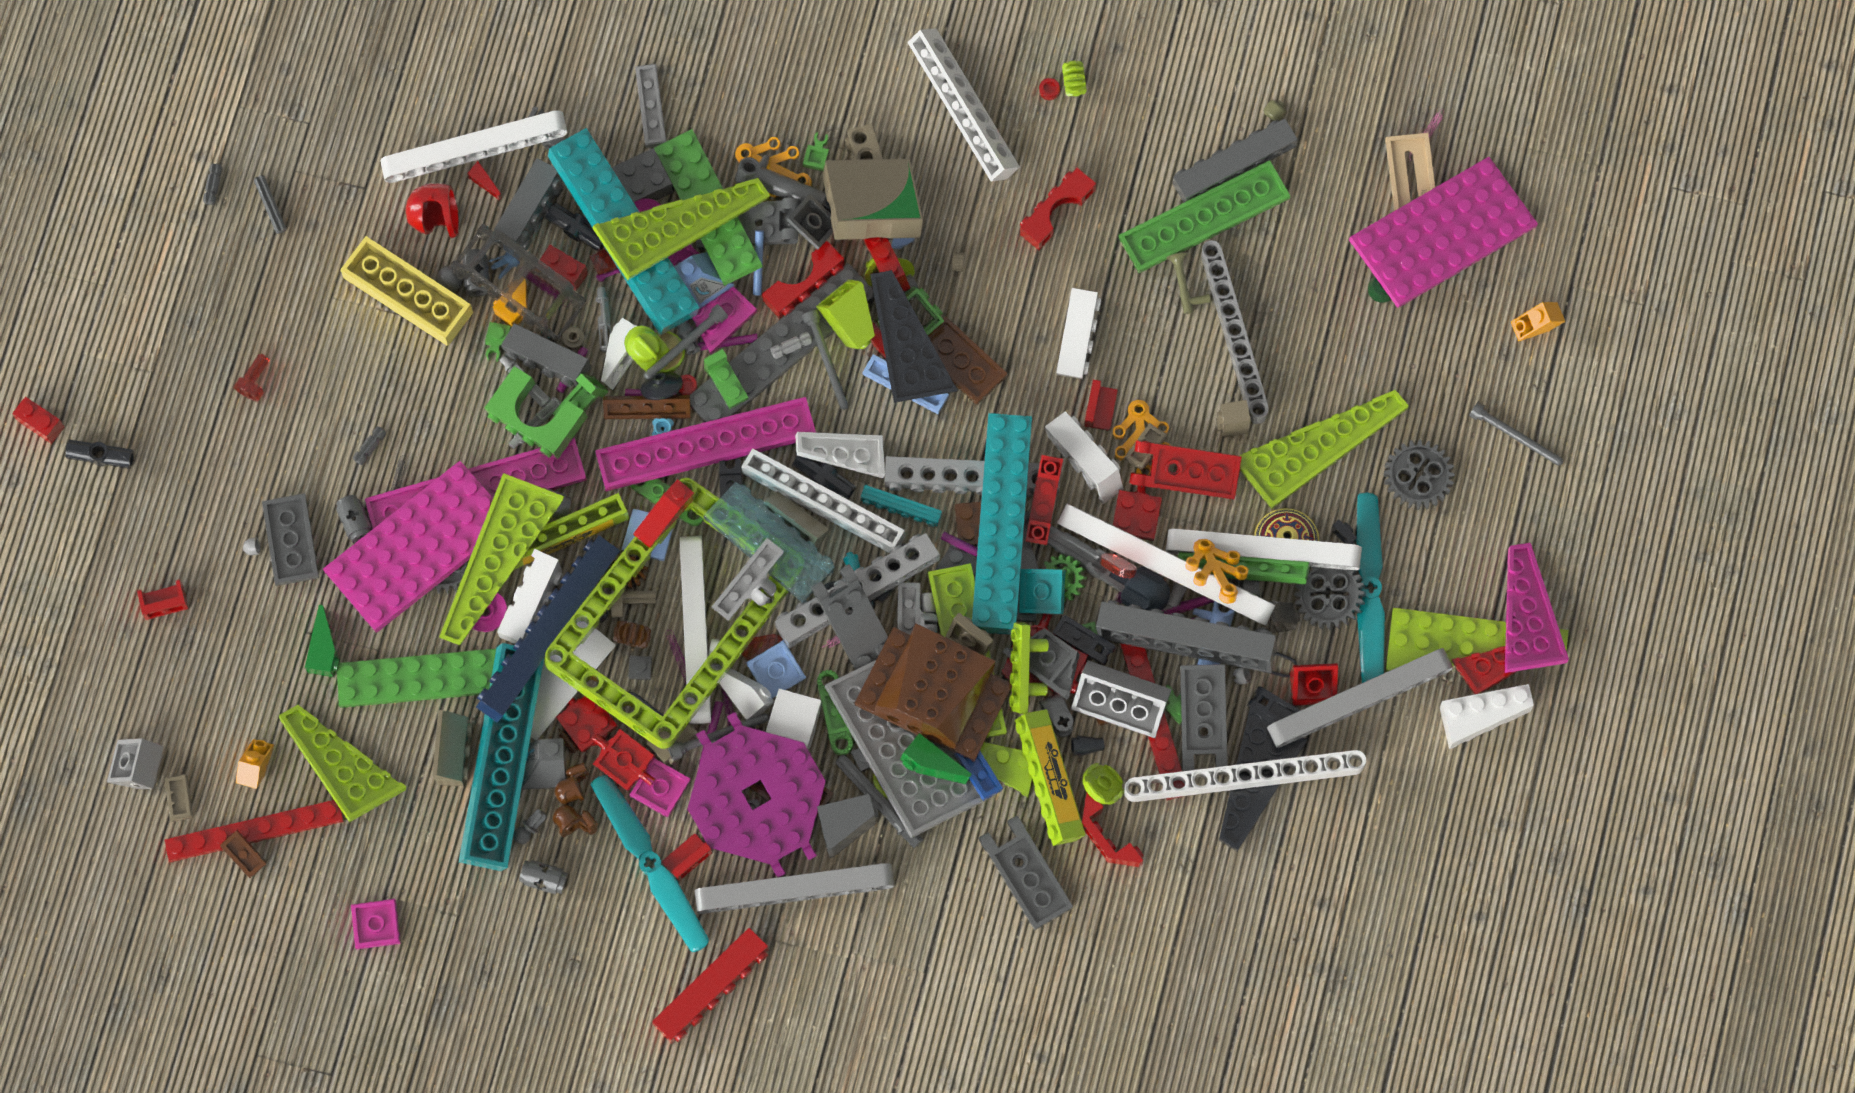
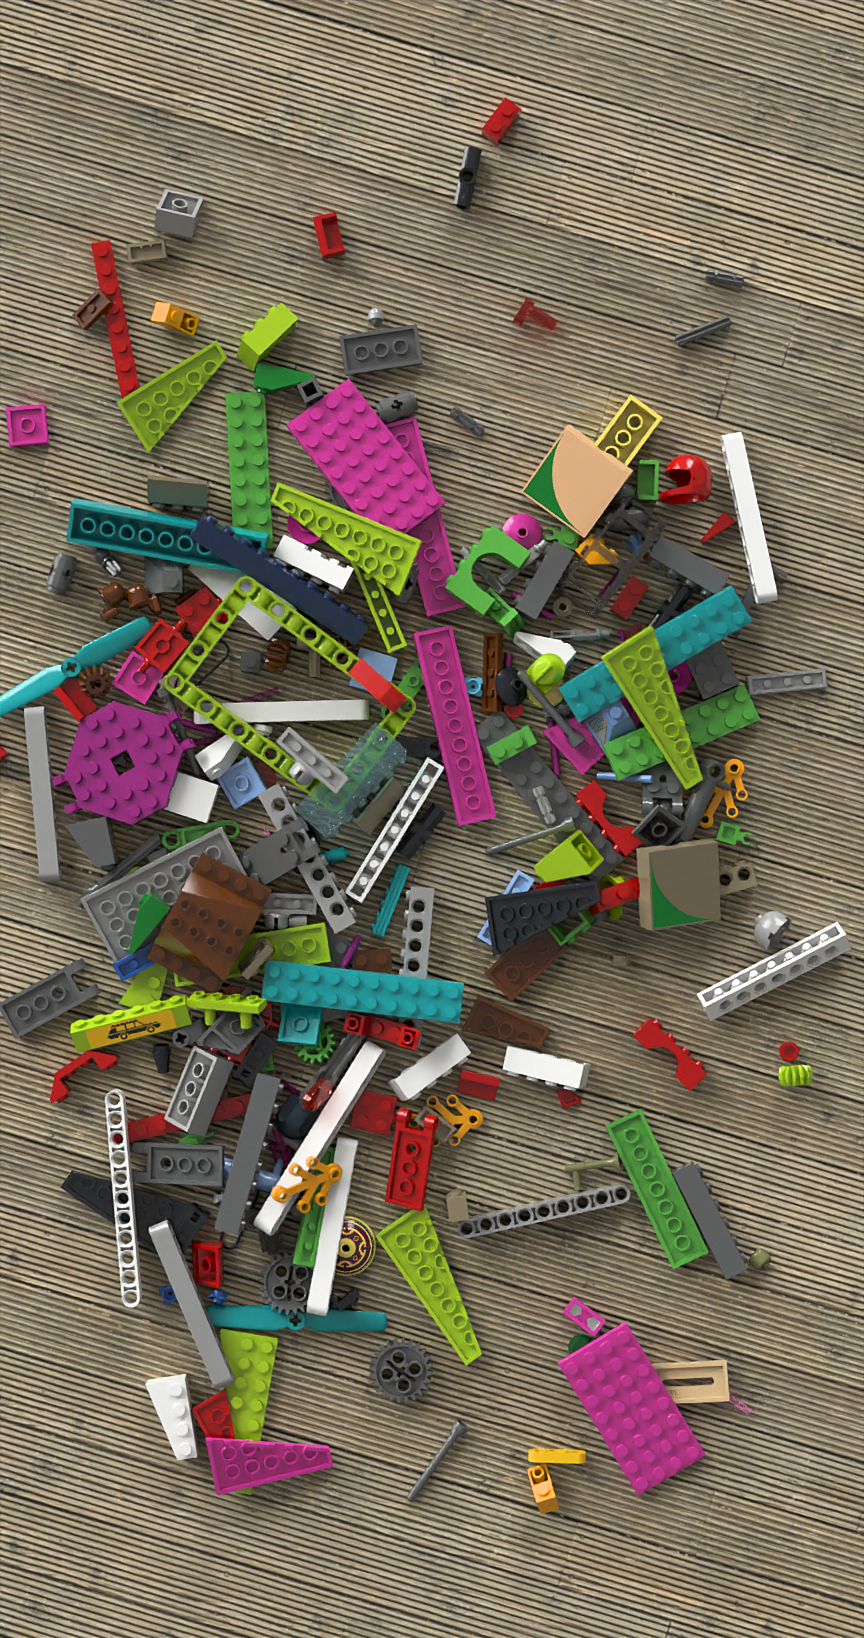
camera: 90 degrees right, 15 degrees up
(275, 661) = (266, 335): none -> lime wedge
(339, 609) = (310, 392): none -> dark grey brick
(434, 252) = (647, 481): none -> bright green panel
(436, 322) = (576, 481): none -> light nougat tile
(481, 389) = (525, 522): none -> dark pink dish
(667, 842) = (93, 675): none -> reddish brown gear
(847, 451) = (441, 856): white wing -> none
(917, 110) = (770, 928): none -> light grey cylinder
(1031, 384) = (497, 1021): none -> reddish brown wing
(1103, 783) = (124, 1070): lime tile -> none
(1111, 313) = (567, 1098): none -> red tile
(1347, 286) = (584, 1316): none -> dark pink piece
(1351, 673) = (218, 1297): none -> blue plate
(1353, 721) = (167, 1299): none -> blue plate
(1501, 308) = (557, 1456): none -> yellow beam

